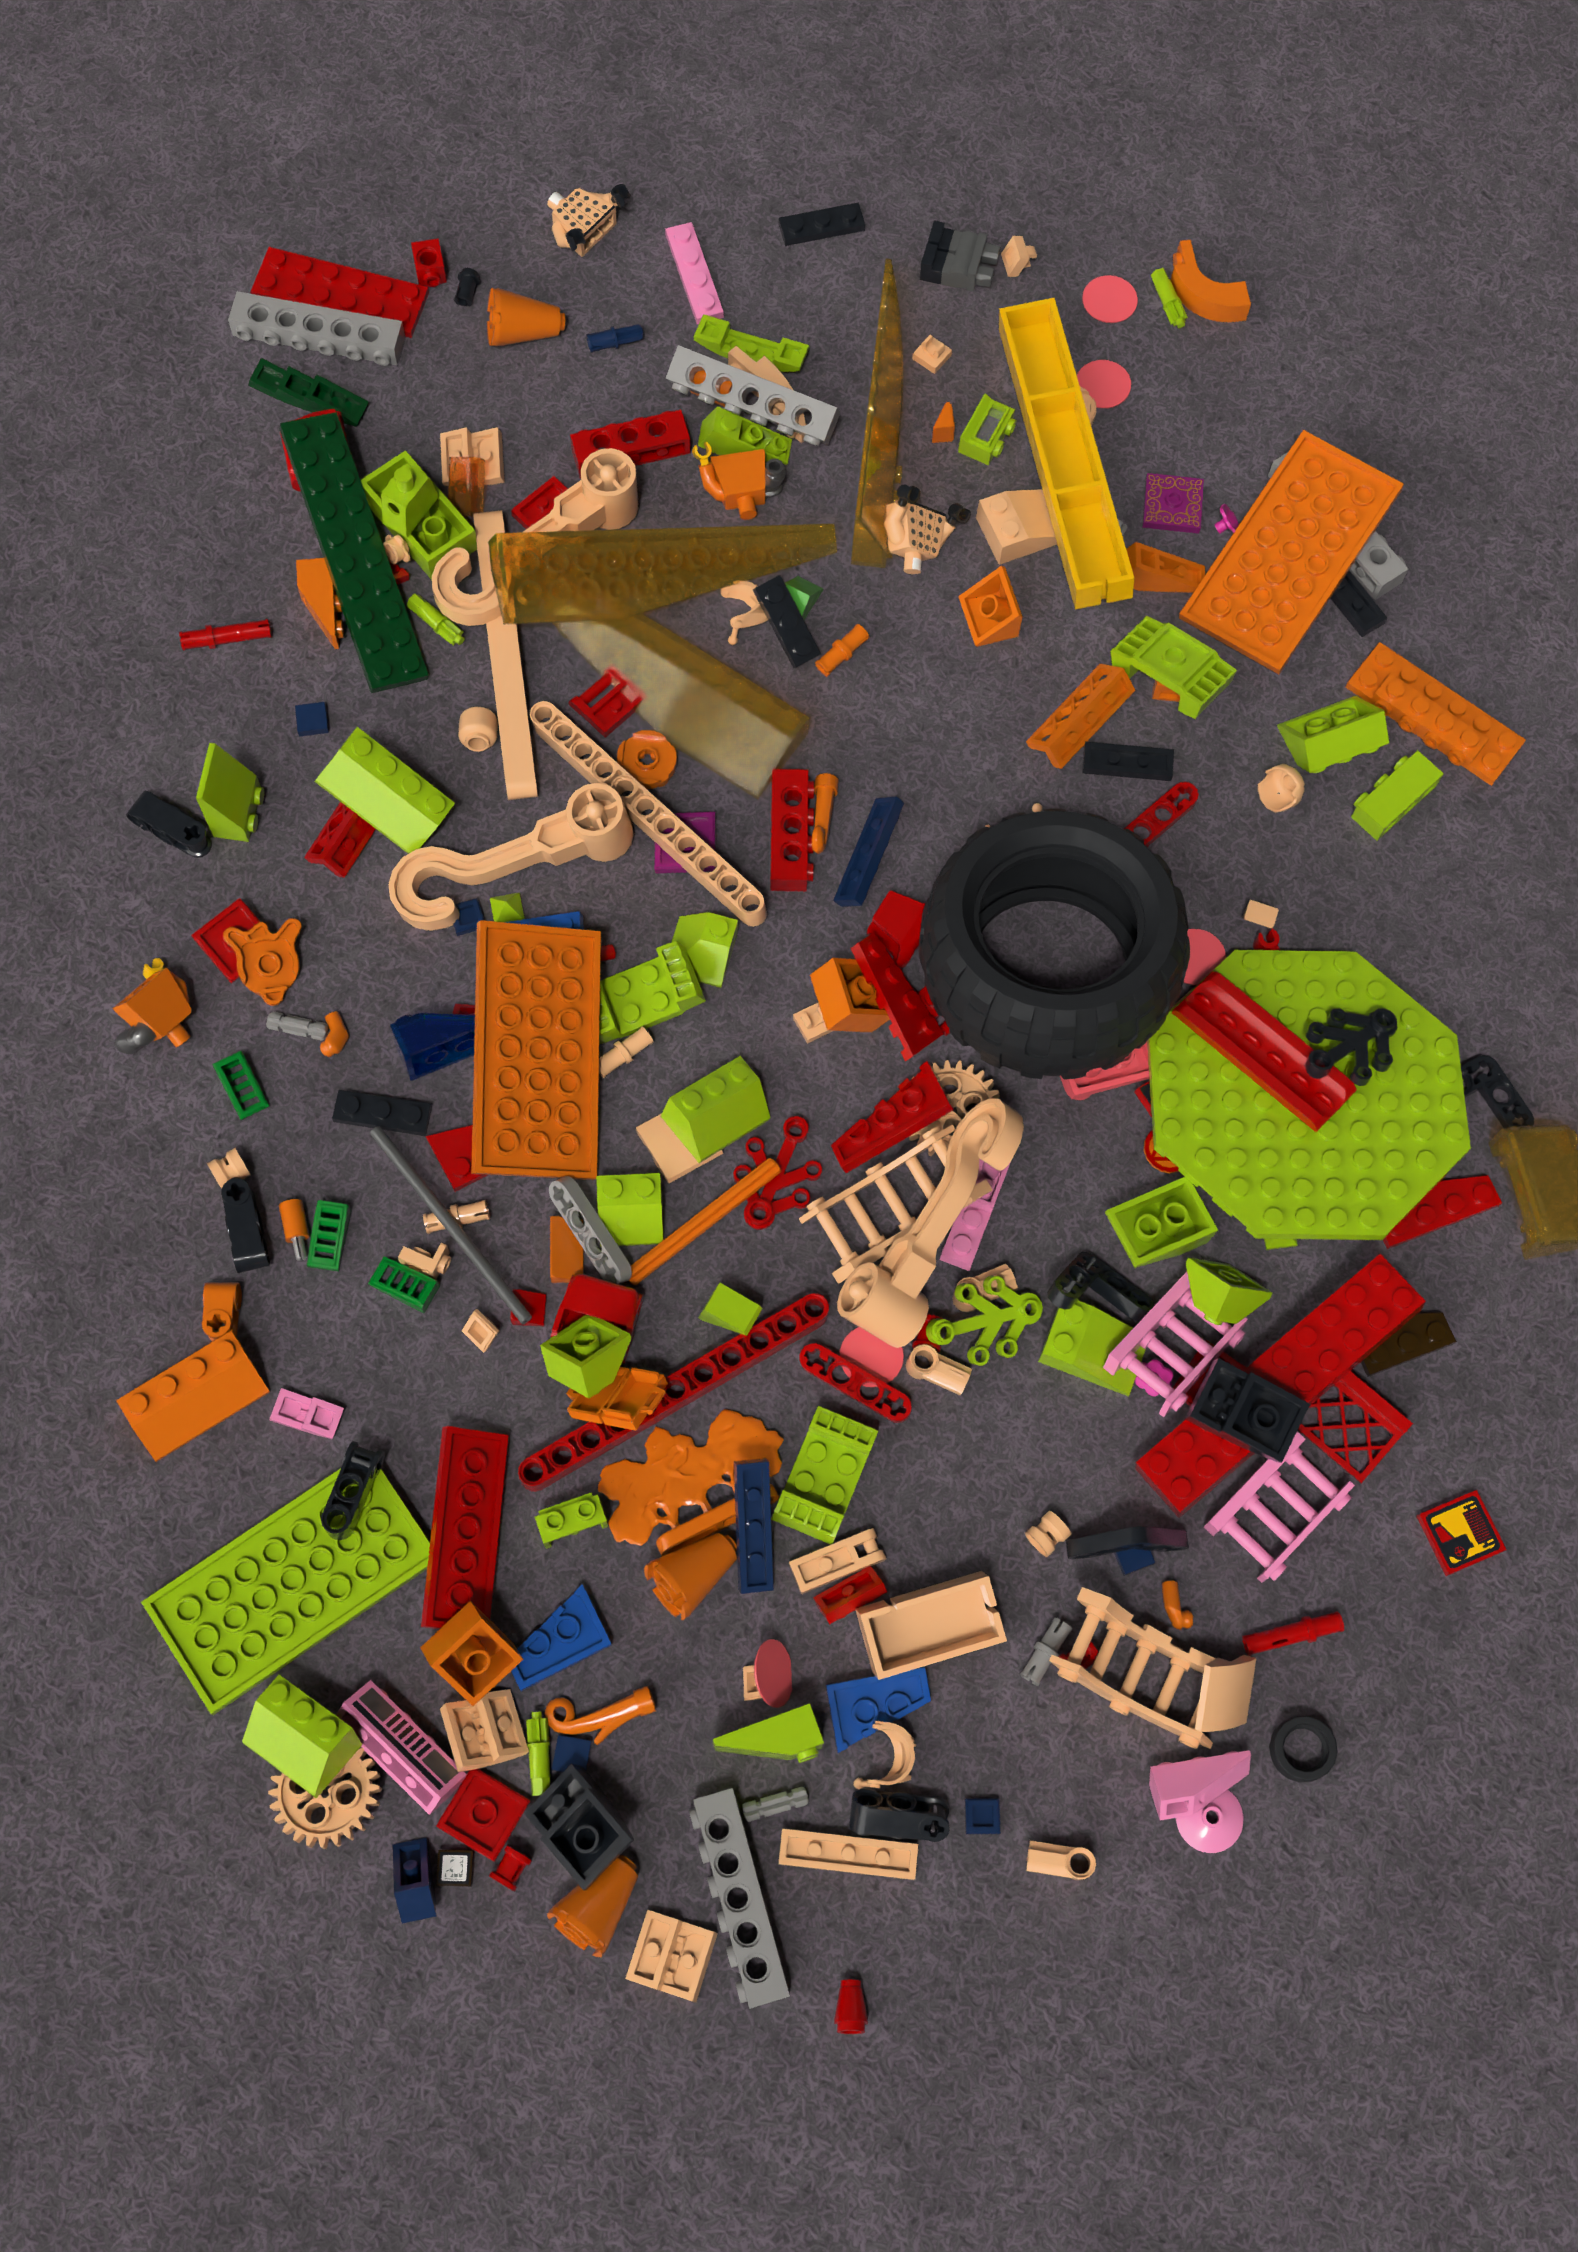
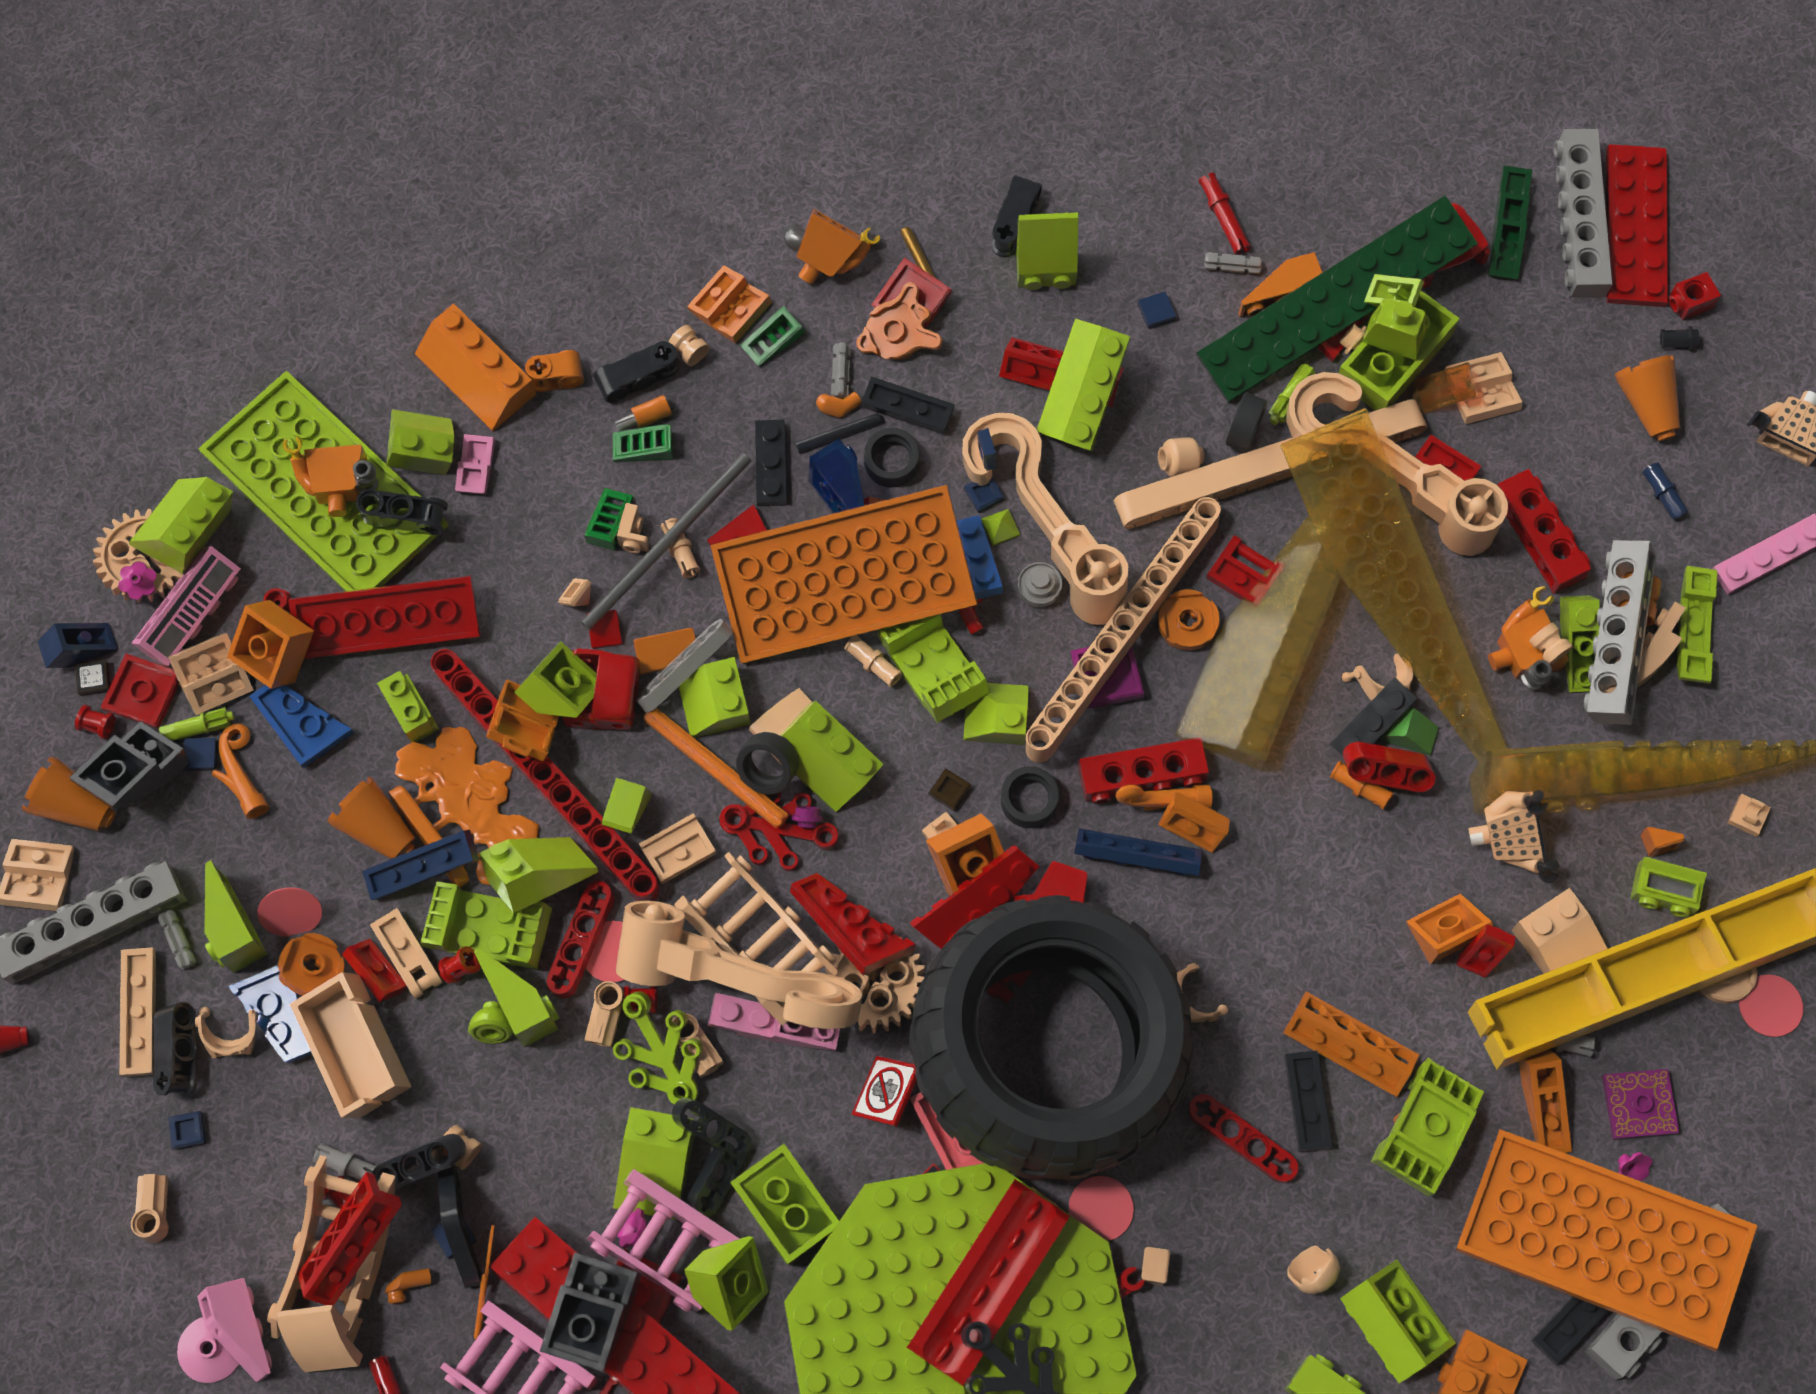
camera: 85 degrees right, 0 degrees up
(179, 929) = (916, 250): none -> pearl gold bar
(189, 1122) = (729, 304): none -> orange slope
(268, 1463) = (420, 442): none -> lime slope
(280, 640) = (1232, 263): none -> light grey axle
(289, 1558) = (333, 474): none -> orange torso
(354, 968) = (907, 405): none -> black plate
(355, 1804) = (142, 586): none -> dark pink plant
(365, 1041) = (839, 432): none -> black bar
(366, 495) = (1394, 288): none -> lime slope
(404, 971) = (885, 478): none -> black tyre
(406, 1649) = (278, 595): none -> red plate
(433, 893) = (986, 449): none -> dark blue tile
(460, 660) = (1246, 422): none -> black tyre
(579, 883) = (1039, 584): none -> light grey plate
(700, 1155) = (781, 749): none -> black tyre
(750, 454) = (1550, 643): none -> light nougat wheel
(770, 1008) = (949, 789): none -> dark brown tile
(774, 1140) = (807, 816): none -> magenta plate
(779, 1272) = (677, 848): none -> light nougat plate
(782, 1409) = (534, 868): none -> lime slope
(799, 914) = (1029, 820): none -> black tyre
(833, 619) = (1398, 776): none -> red beam
(835, 1675) = (300, 950): none -> orange plate
(851, 795) = (1195, 822): none -> orange slope
(862, 1505) = (458, 965): none -> red bush
(920, 1445) = (523, 1006): none -> lime slope
(927, 1483) = (490, 1024): none -> lime brick
(1023, 579) = (1486, 950): none -> red plate
(1054, 1558) = (430, 1156): none -> black beam
(1062, 1117) = (886, 1091): none -> piece
(1146, 1646) = (347, 1241): none -> red fence
(1171, 1518) = (483, 1287): none -> orange piece

